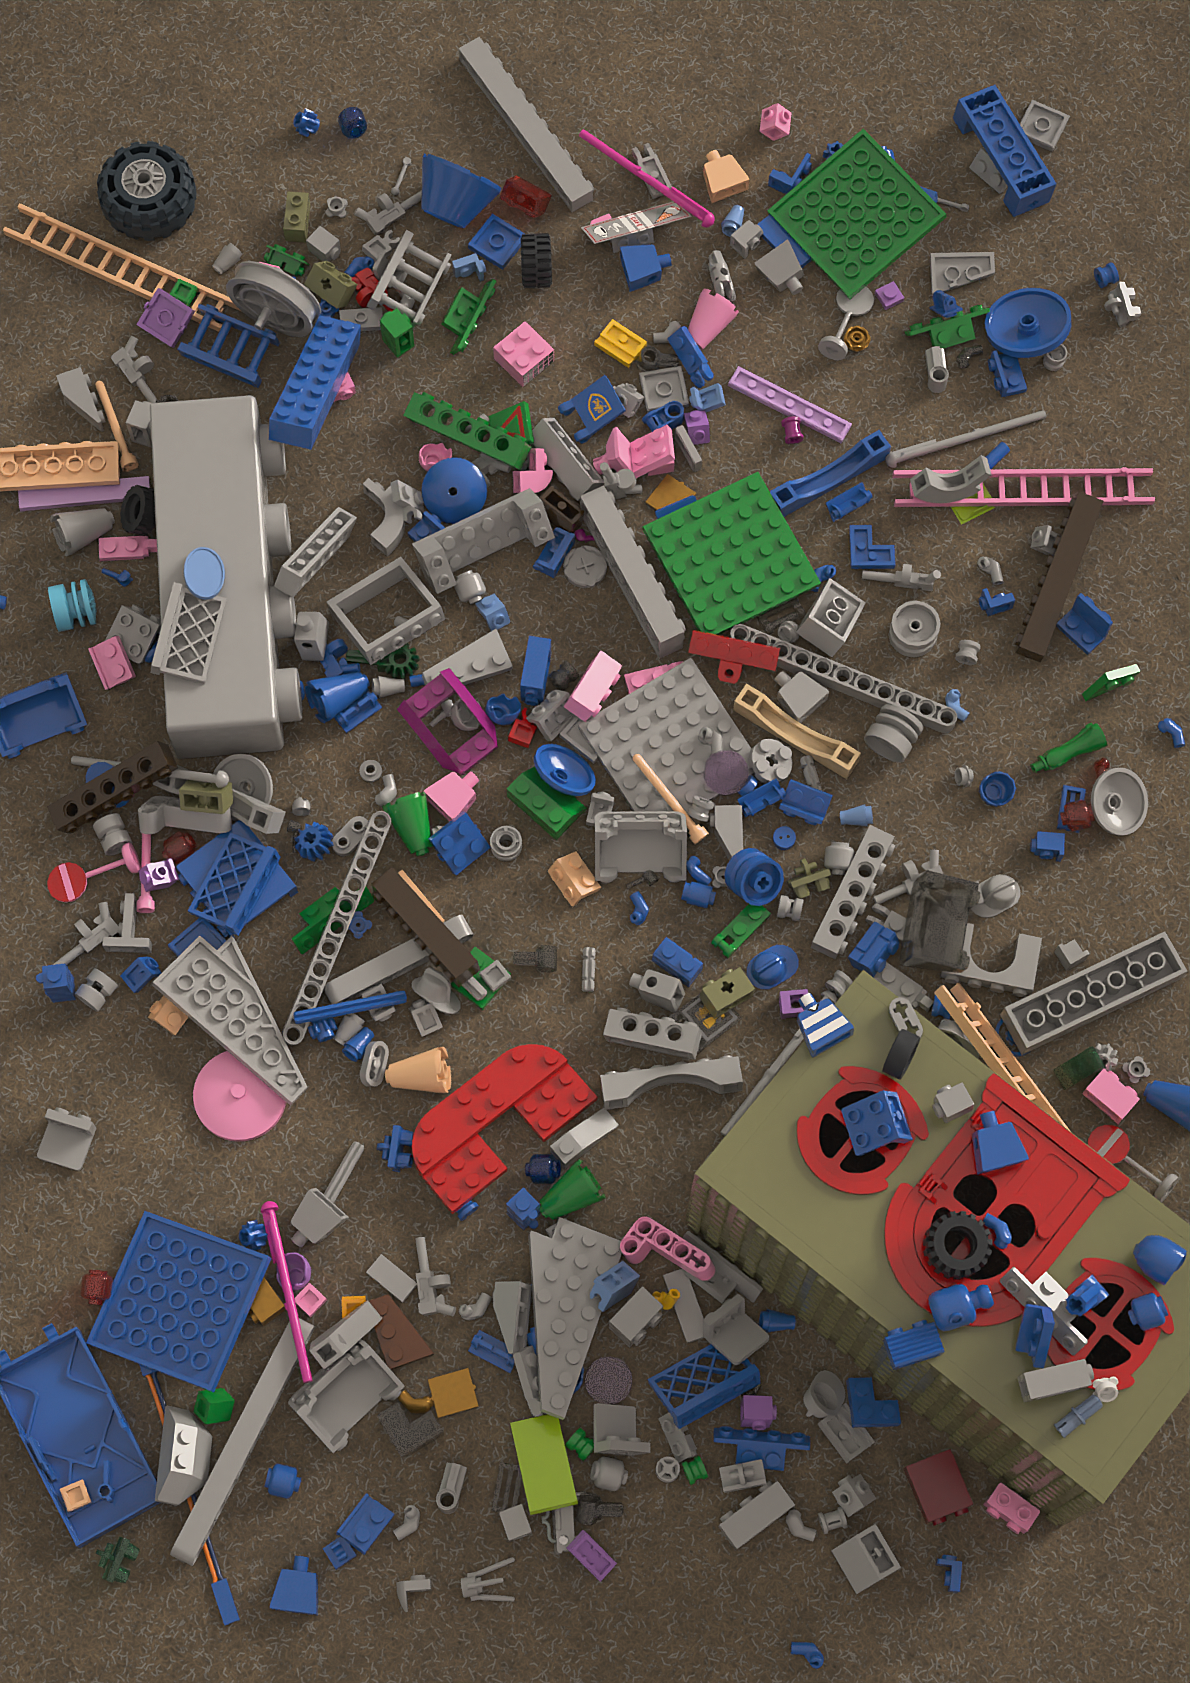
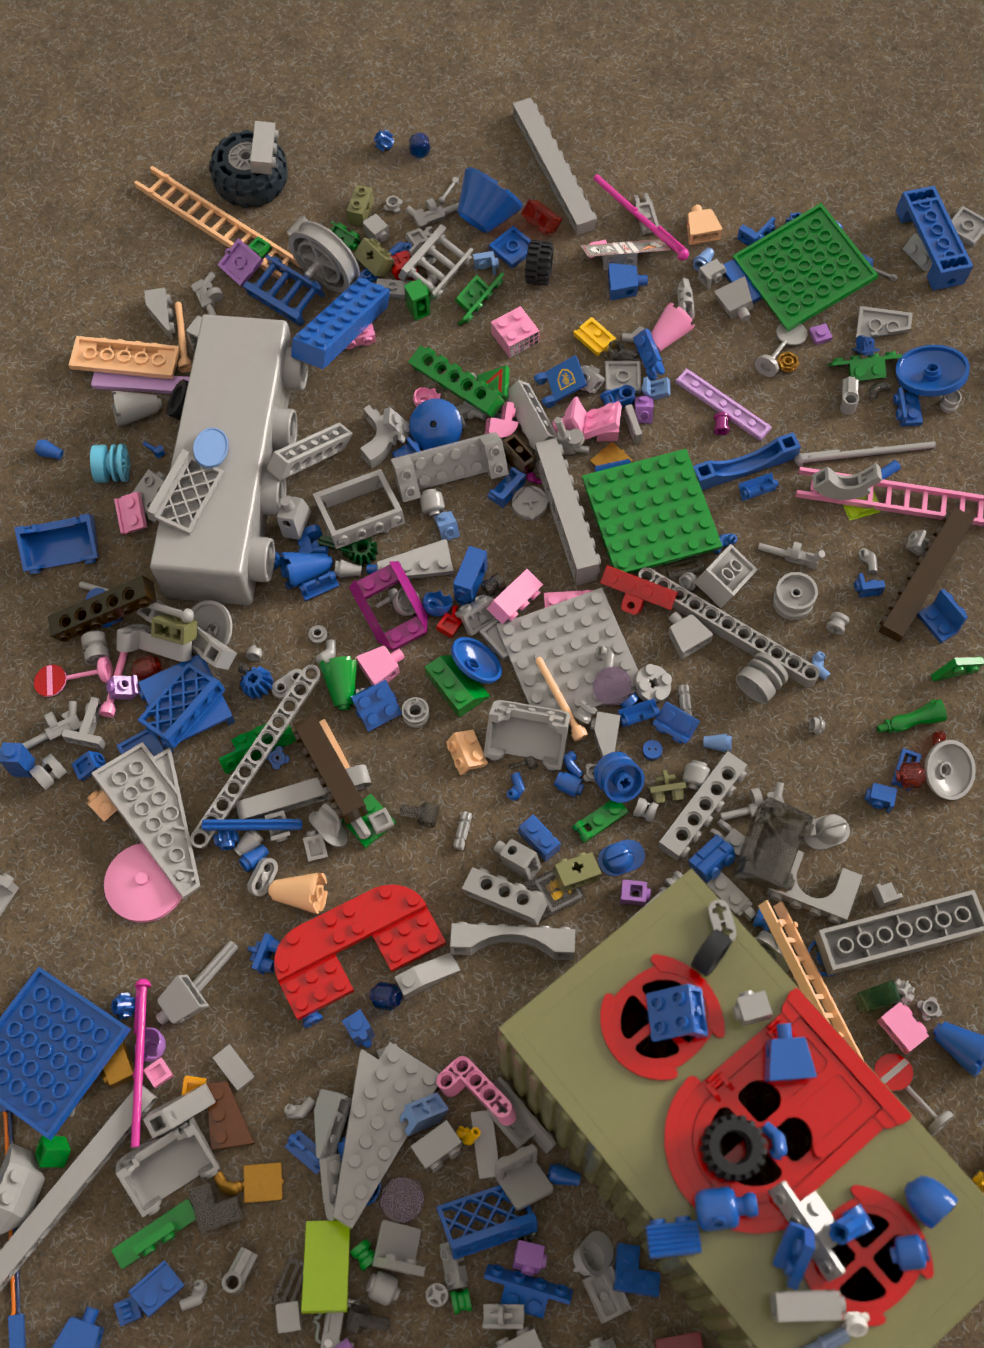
camera: 15 degrees right, 5 degrees down
(126, 548) = (161, 428): bright pink hinge -> none
(166, 166) = (264, 147): none -> light grey brick
(282, 1481) = (93, 1233): blue head -> none
(349, 1468) = (157, 1232): none -> green bracket
(428, 1283) = (263, 1079): light grey piece -> none
(571, 1192) = (405, 1022): green cone -> none
(599, 803) = (501, 692): light grey bracket -> none
(775, 122) = (751, 191): bright pink brick -> none
(822, 1024) = (643, 911): blue torso -> none
(825, 750) = (704, 685): tan arch -> none
(864, 554) = (764, 530): blue plate -> none
(997, 789) = (844, 740): blue hair -> none

